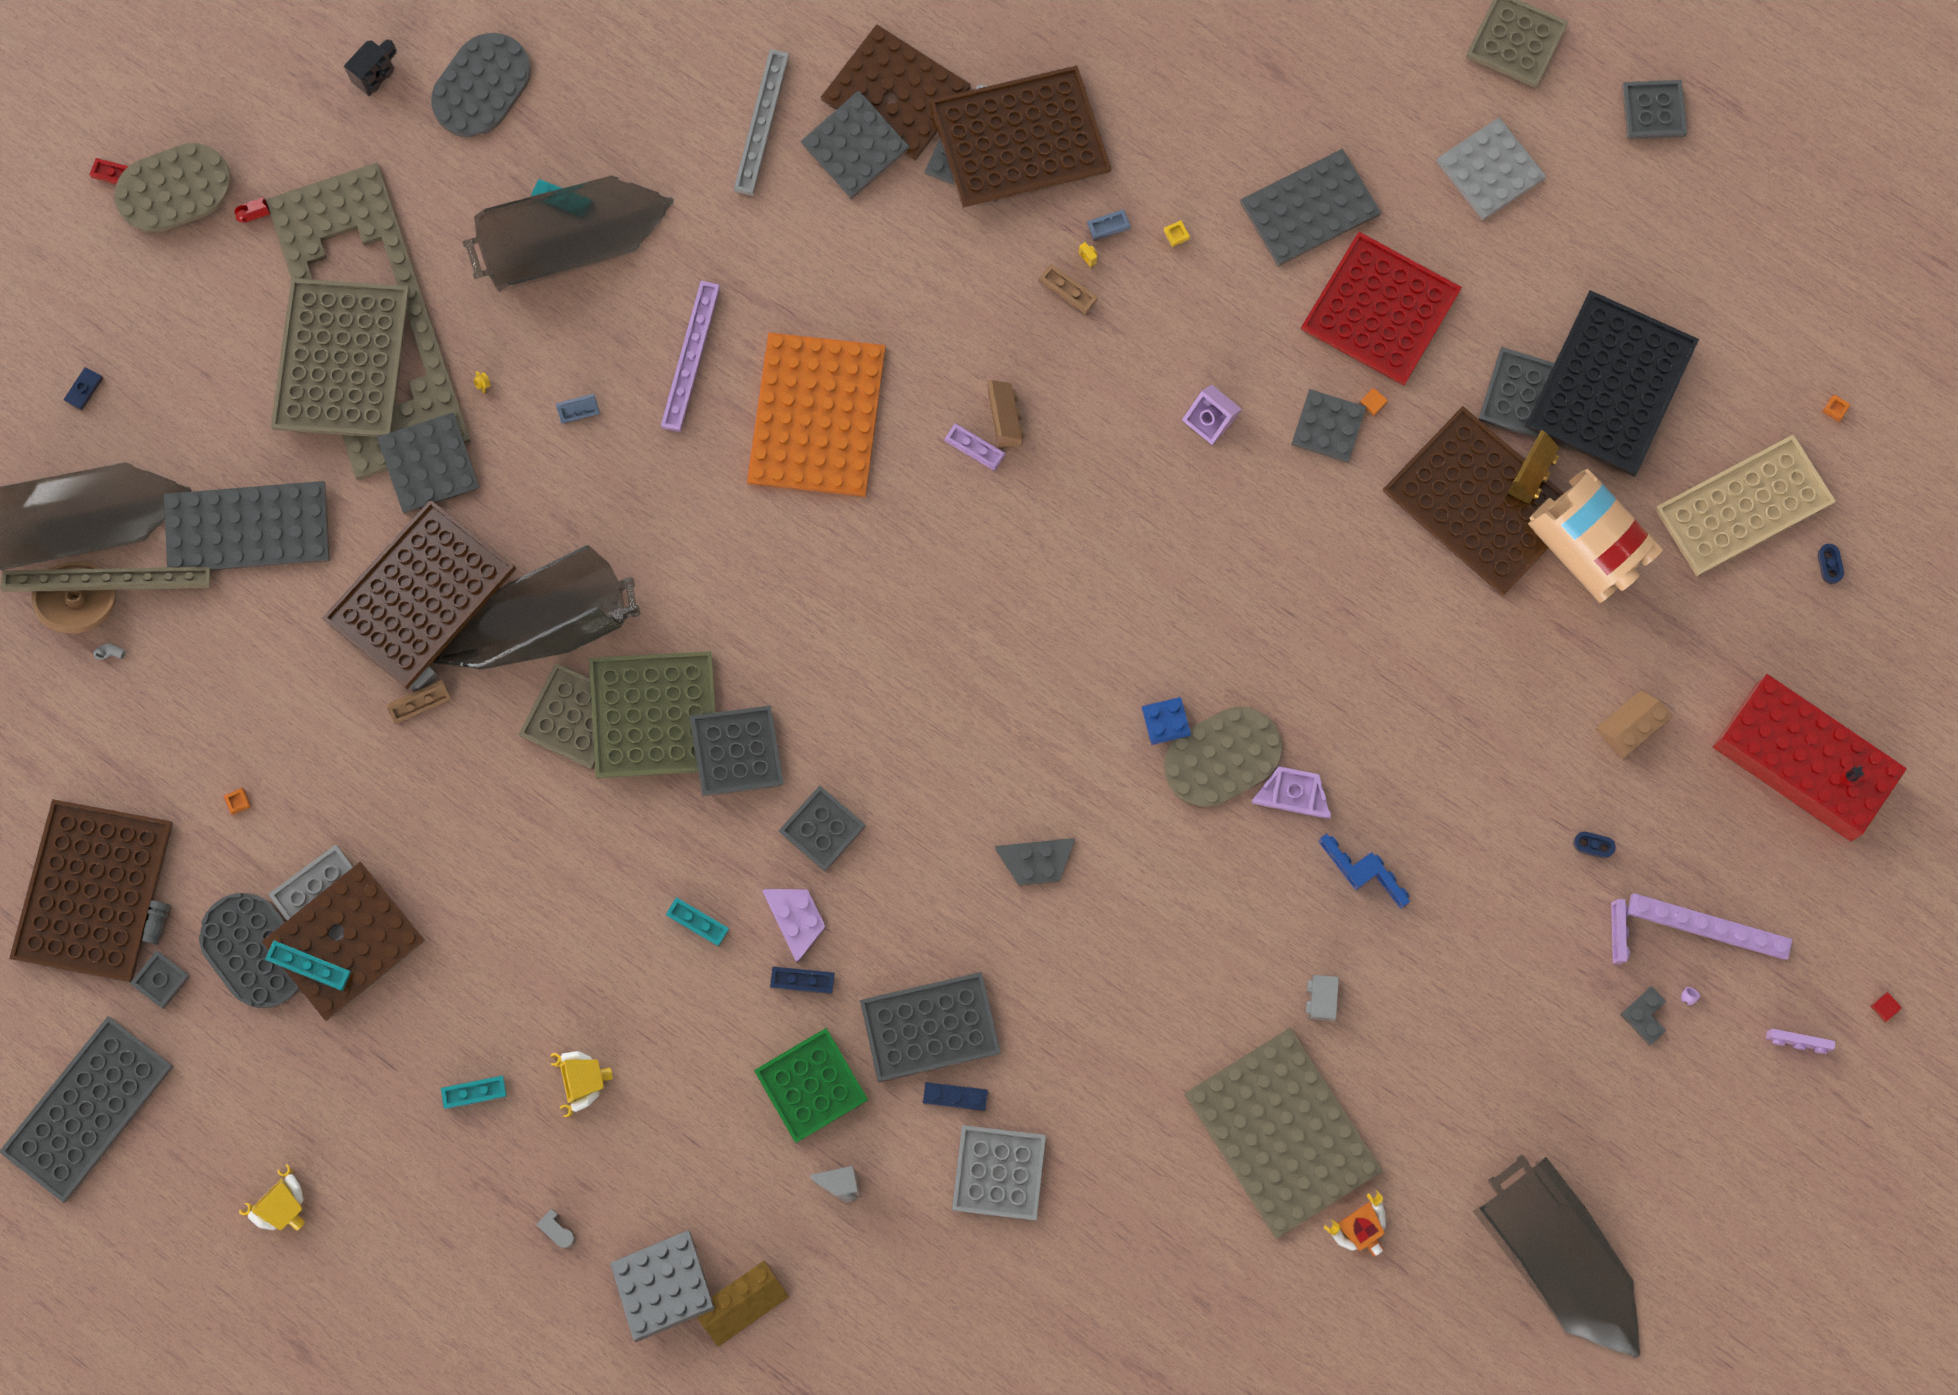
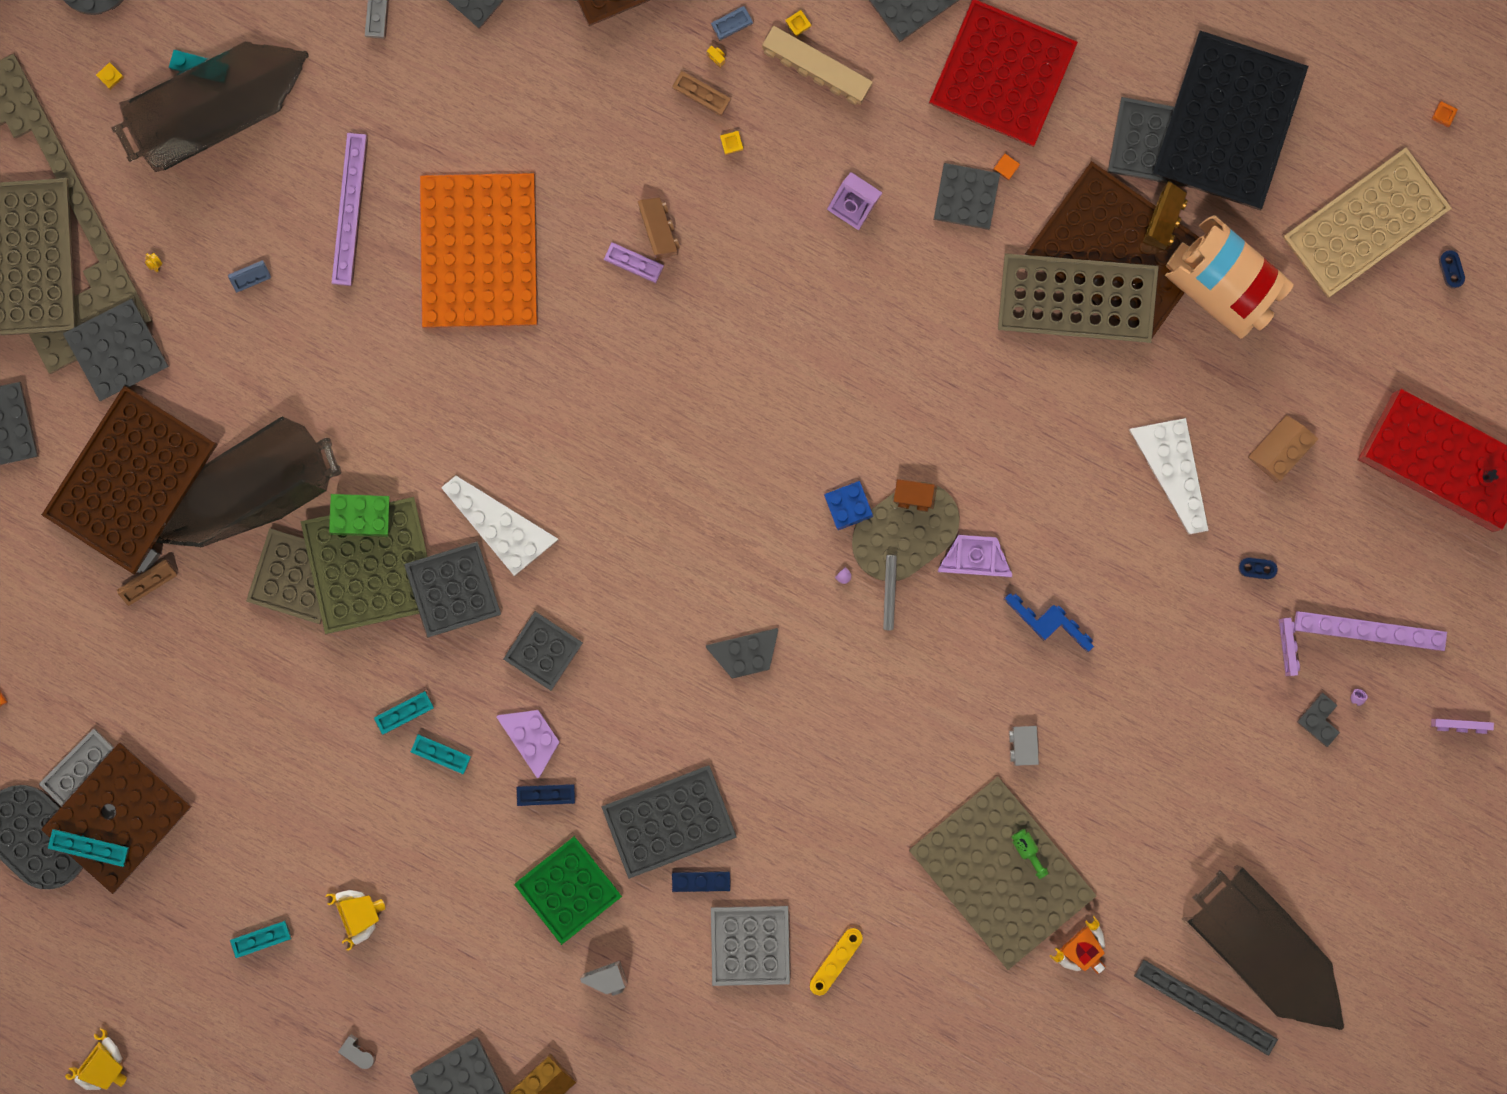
camera: 10 degrees left, 10 degrees up
(470, 196) = (110, 76): none -> yellow plate
(651, 659) = (359, 515): none -> bright green brick
(665, 873) = (404, 713): none -> teal plate
(801, 700) = (505, 531): none -> white wing
(1089, 1203) = (836, 961): none -> yellow plate
(1092, 341) = (731, 142): none -> yellow plate
(1151, 794) = (843, 576): none -> lavender hinge
(1190, 276) = (816, 65): none -> tan brick
(1198, 816) = (889, 600): none -> light grey axle
(1238, 716) = (915, 494): none -> dark orange brick
(1313, 1108) = (1027, 849): none -> bright green piece
(1448, 511) = (1089, 269): none -> dark tan piece
(1489, 1311) = (1206, 1007): none -> dark grey tile
(1514, 722) = (1173, 464): none -> white wing

